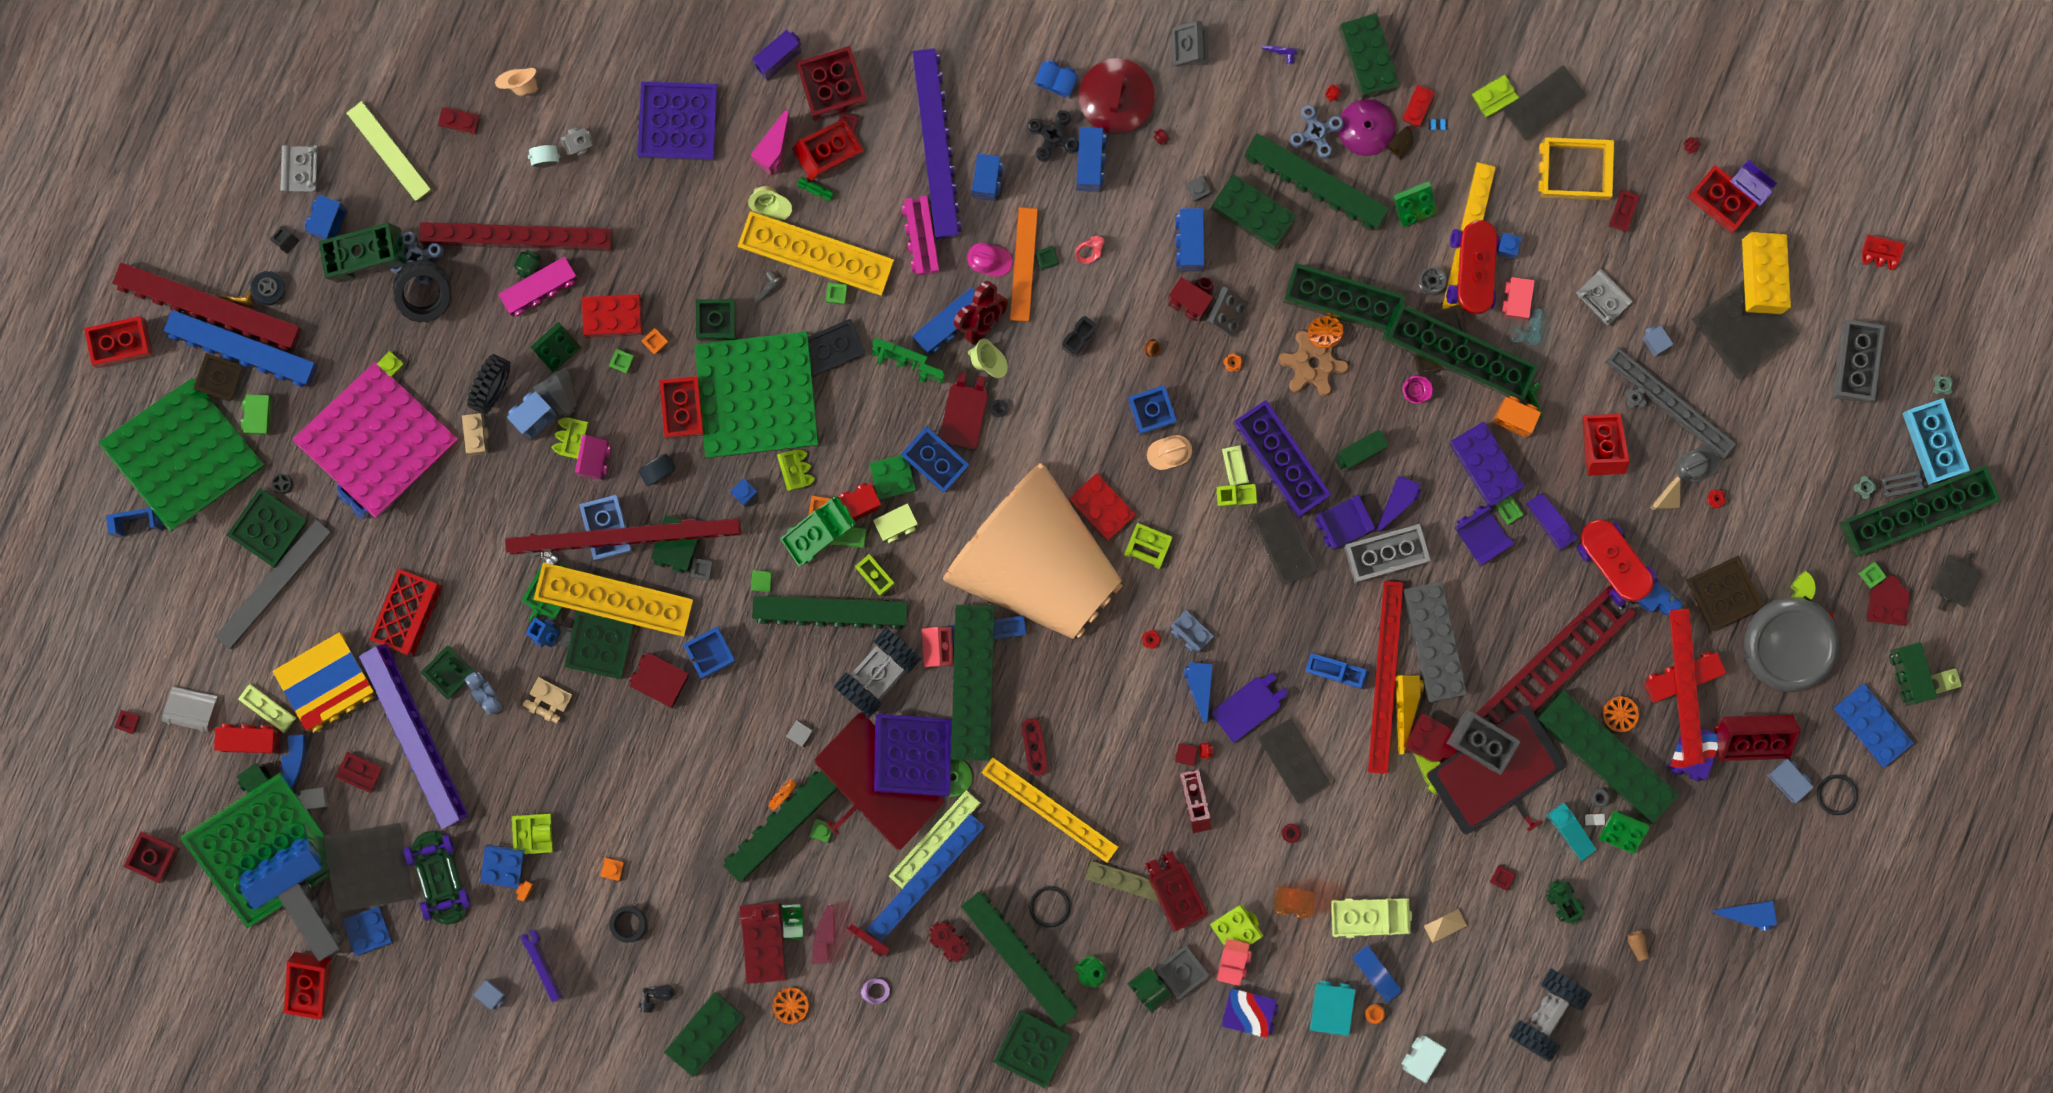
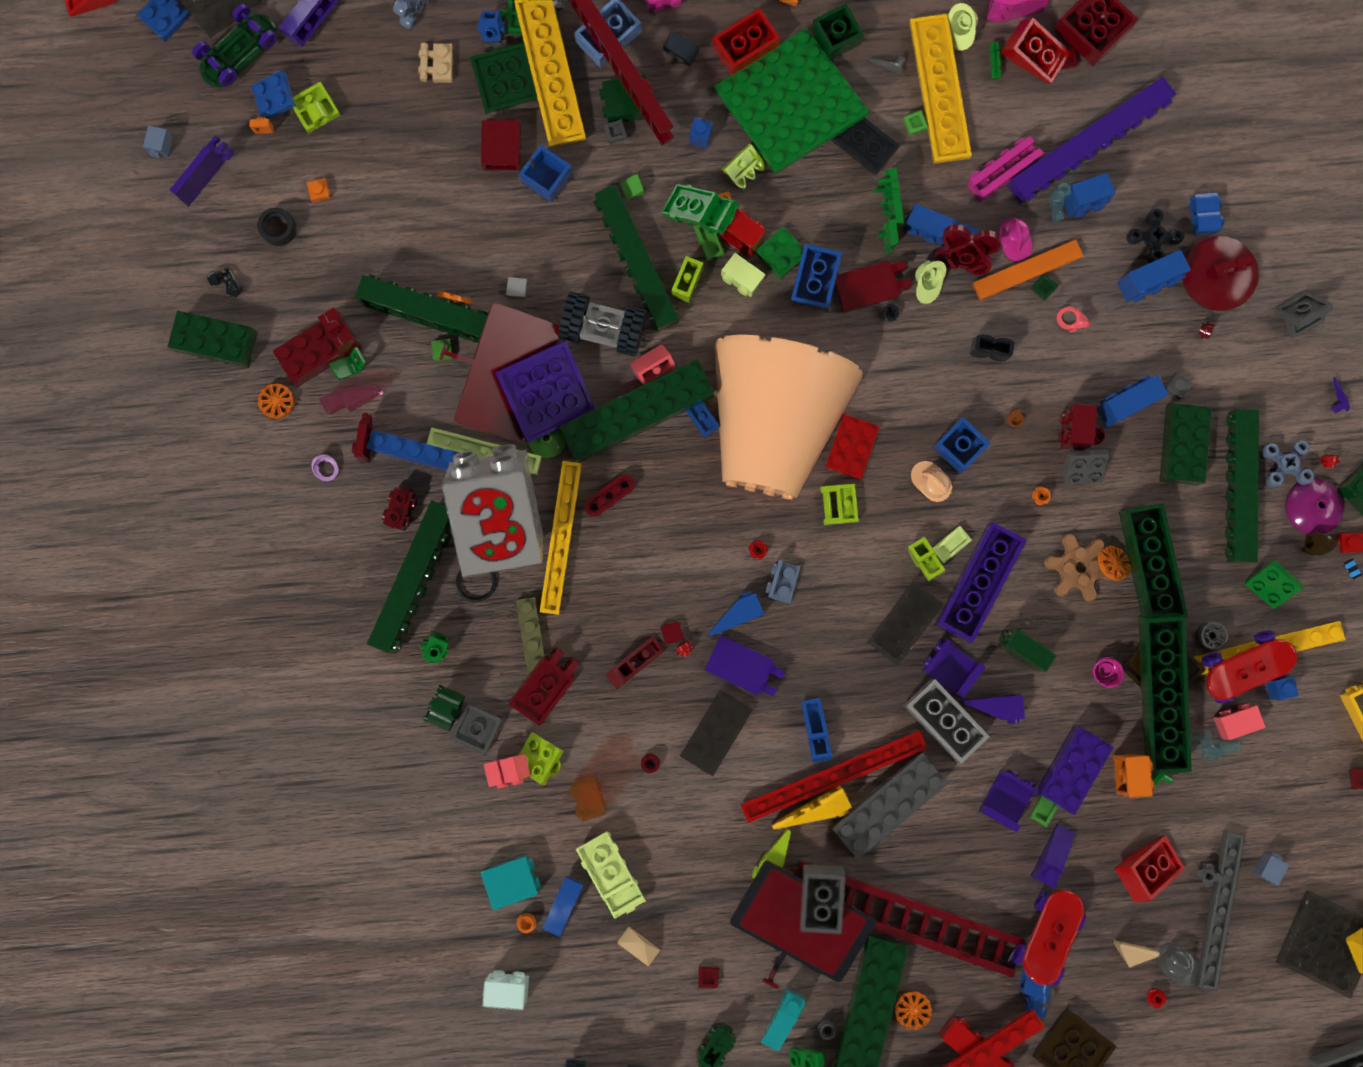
camera: 60 degrees right, 0 degrees up
(975, 205) = (1056, 201): none -> clear light blue bar
(1001, 853) = (493, 511): none -> light grey brick
(1032, 1049) = (341, 630): dark green plate -> none
(1249, 1013) = (468, 809): panel -> none
(1430, 740) = (798, 847): dark red plate -> none
(1595, 819) = (805, 1035): white sticker -> none
(1604, 297) = (1282, 799): light grey piece -> none

